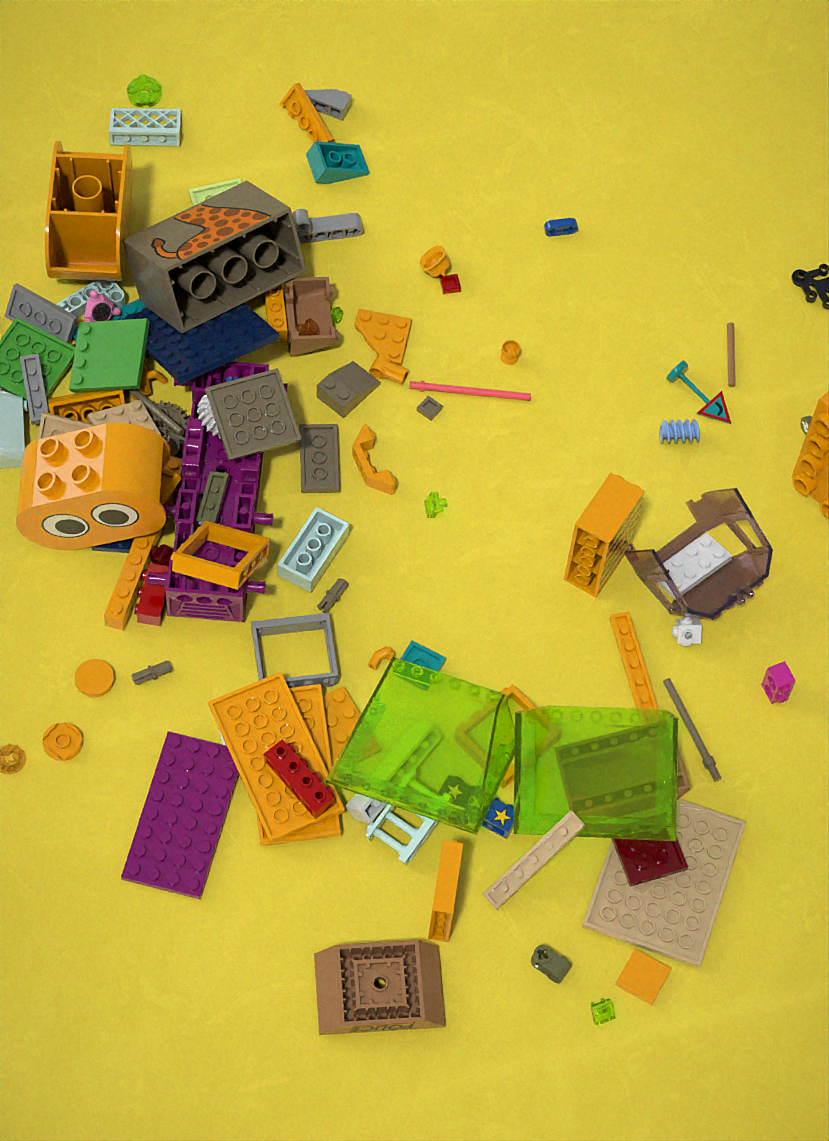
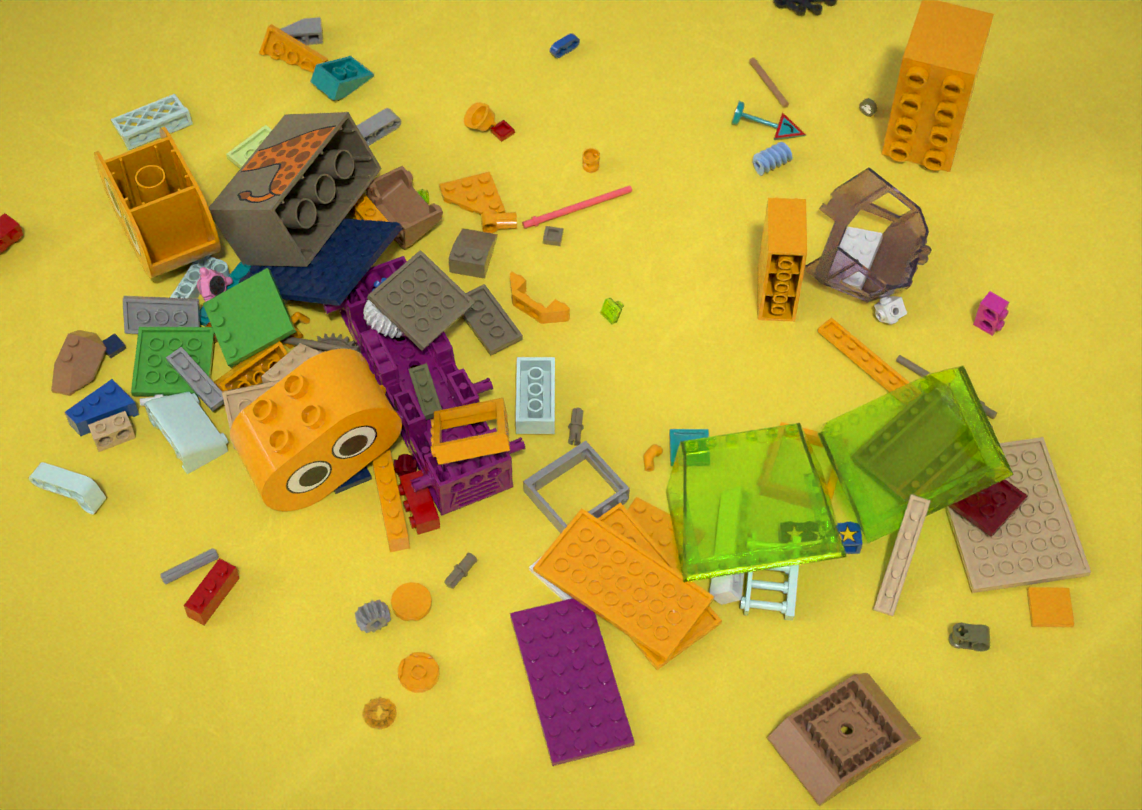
camera: 25 degrees left, 5 degrees down
(51, 673) = (372, 616): none -> light grey gear
(142, 83) = (136, 86): clear neon green plate -> none
(299, 778) = (660, 590): red brick -> none
(308, 328) = (410, 215): clear orange wheel -> none
(445, 891) = (860, 648): light orange window -> none
(602, 1011) = (1040, 652): clear neon green tile -> none

